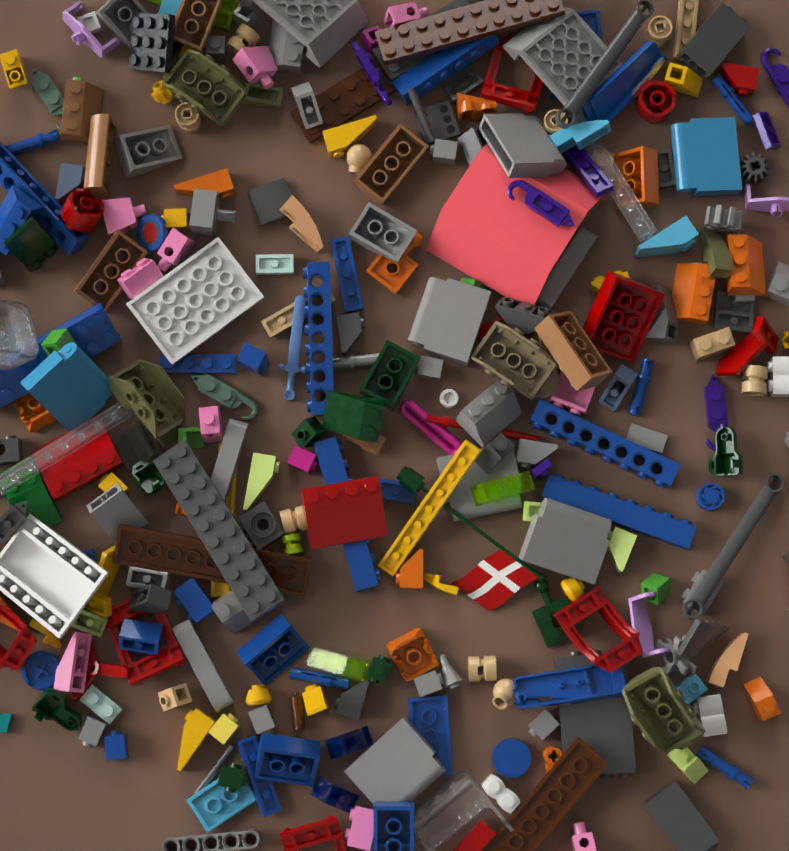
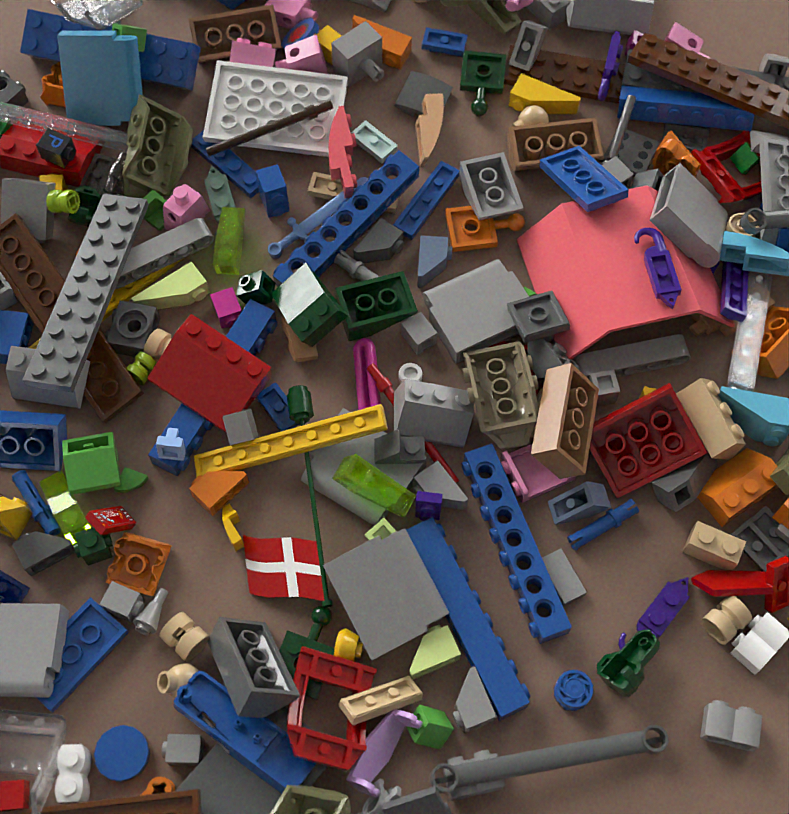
camera: 40 degrees right, 15 degrees down
(97, 460) = (56, 148): none -> black brick
(139, 490) = (63, 201): none -> lime wheel
(222, 285) = (310, 112): none -> dark brown bar
(246, 148) = (444, 41): none -> blue plate
(258, 415) = (229, 241): none -> clear neon green slope
(264, 290) = (341, 150): none -> coral slope
(293, 161) = (475, 82): none -> dark green plate
(330, 627) = (91, 463): none -> bright green slope
(356, 614) = (130, 480): none -> bright green tile
(367, 575) = (171, 446): none -> light blue tile
(375, 647) = (110, 520): none -> red tile
(389, 311) = (432, 258): none -> sand blue slope
(392, 525) = (240, 426): none -> light grey panel
(438, 179) = (584, 178): none -> blue plate
(494, 296) = (538, 316): none -> dark grey tile
(509, 65) = (745, 159): none -> green tile
(538, 649) = (251, 667): none -> dark grey slope
(568, 301) = (607, 385): none -> light grey panel
(619, 600) = (380, 700): none -> tan tile
(648, 269) = (712, 419): none -> tan slope
(666, 555) = (473, 704): none -> light grey slope

